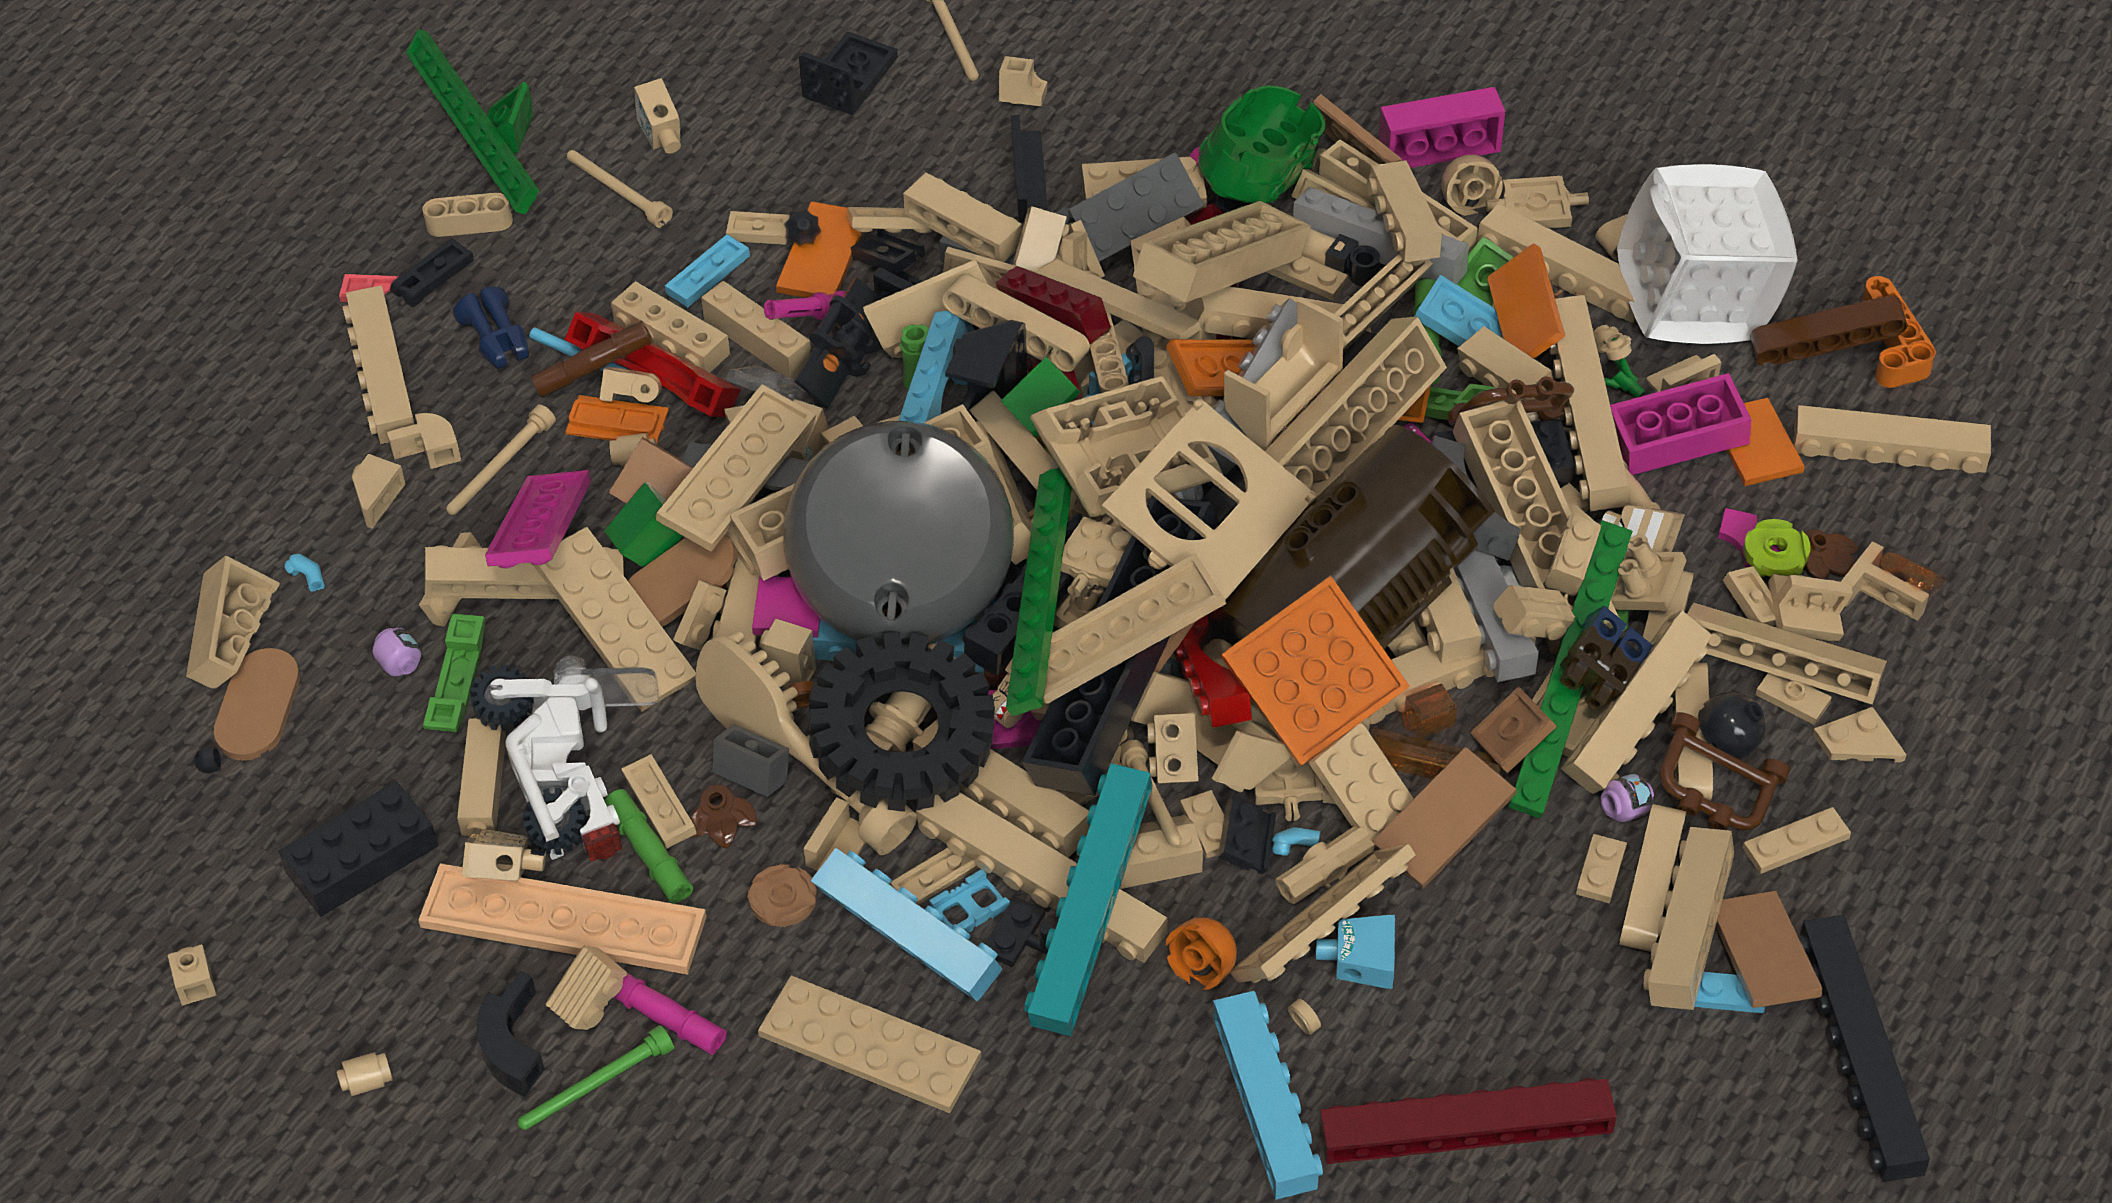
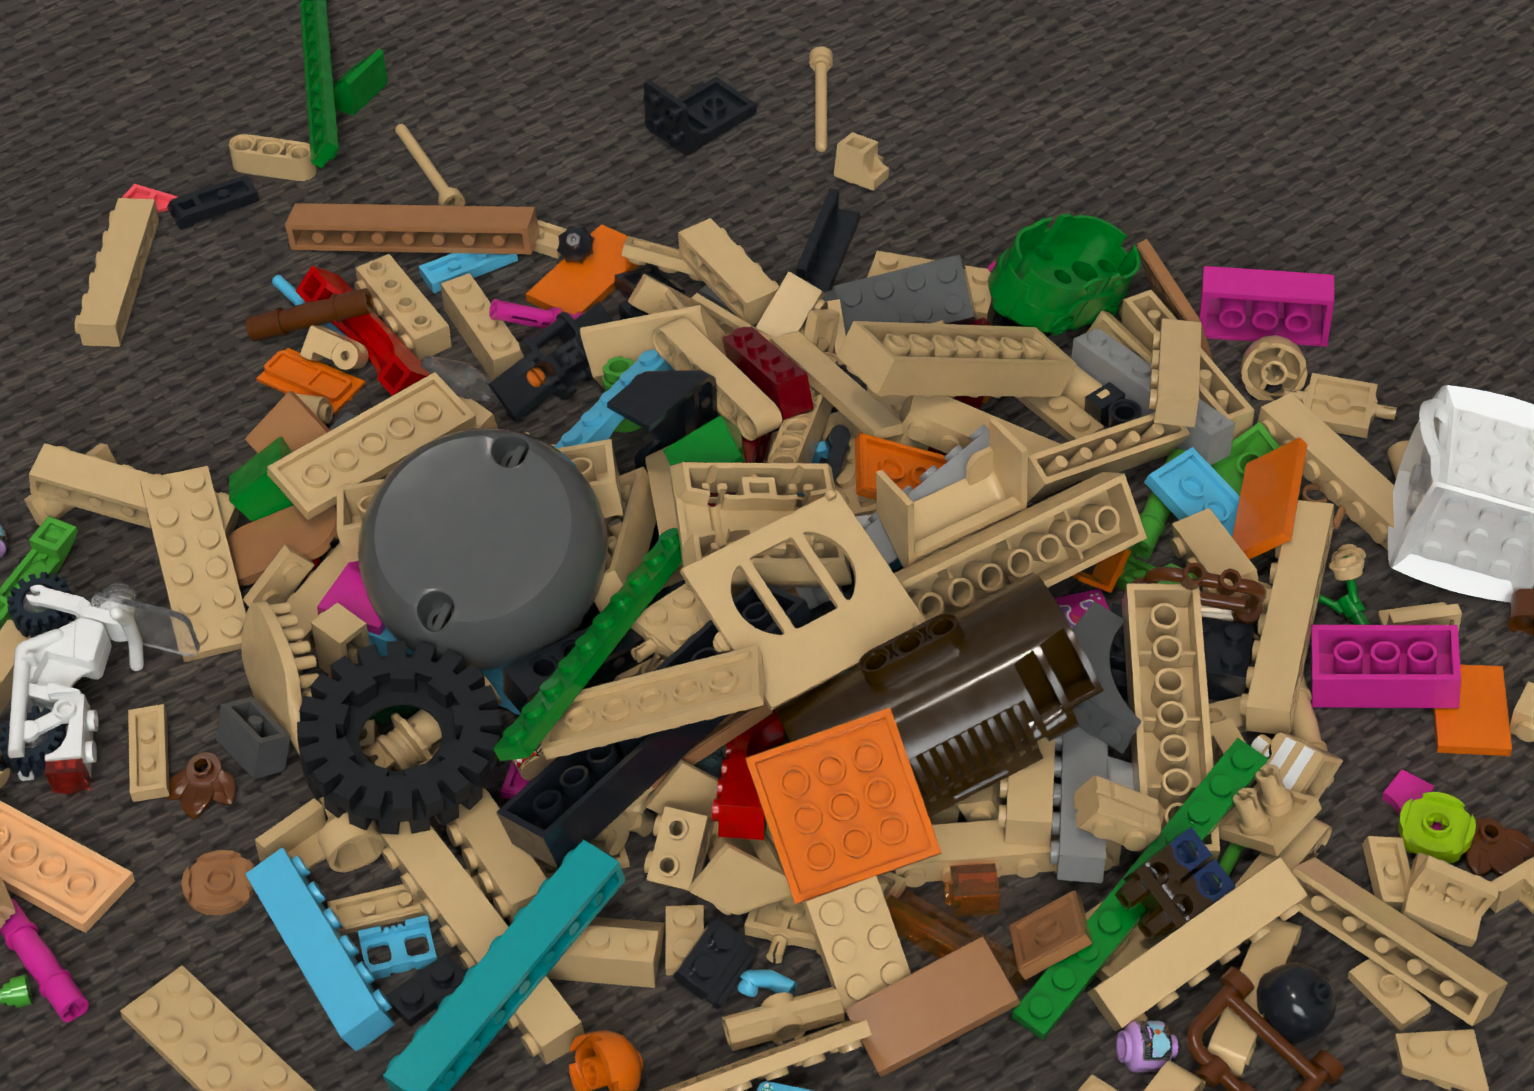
camera: 20 degrees right, 5 degrees down
(376, 486) = (50, 382): tan slope -> none
(430, 435) = (123, 348): tan brick -> none
(492, 343) = (240, 278): dark blue piece -> none
(538, 519) = (168, 447): dark pink plate -> none
(539, 419) = (235, 361): tan piece -> none
(642, 251) = (412, 228): none -> medium nougat brick
(649, 848) = (114, 794): bright green piece -> none
(662, 126) = (493, 123): tan torso -> none
(915, 262) = (657, 297): none -> tan bracket
(1135, 756) = (636, 847): tan piece -> none
(1572, 555) = (1187, 764): tan brick -> none

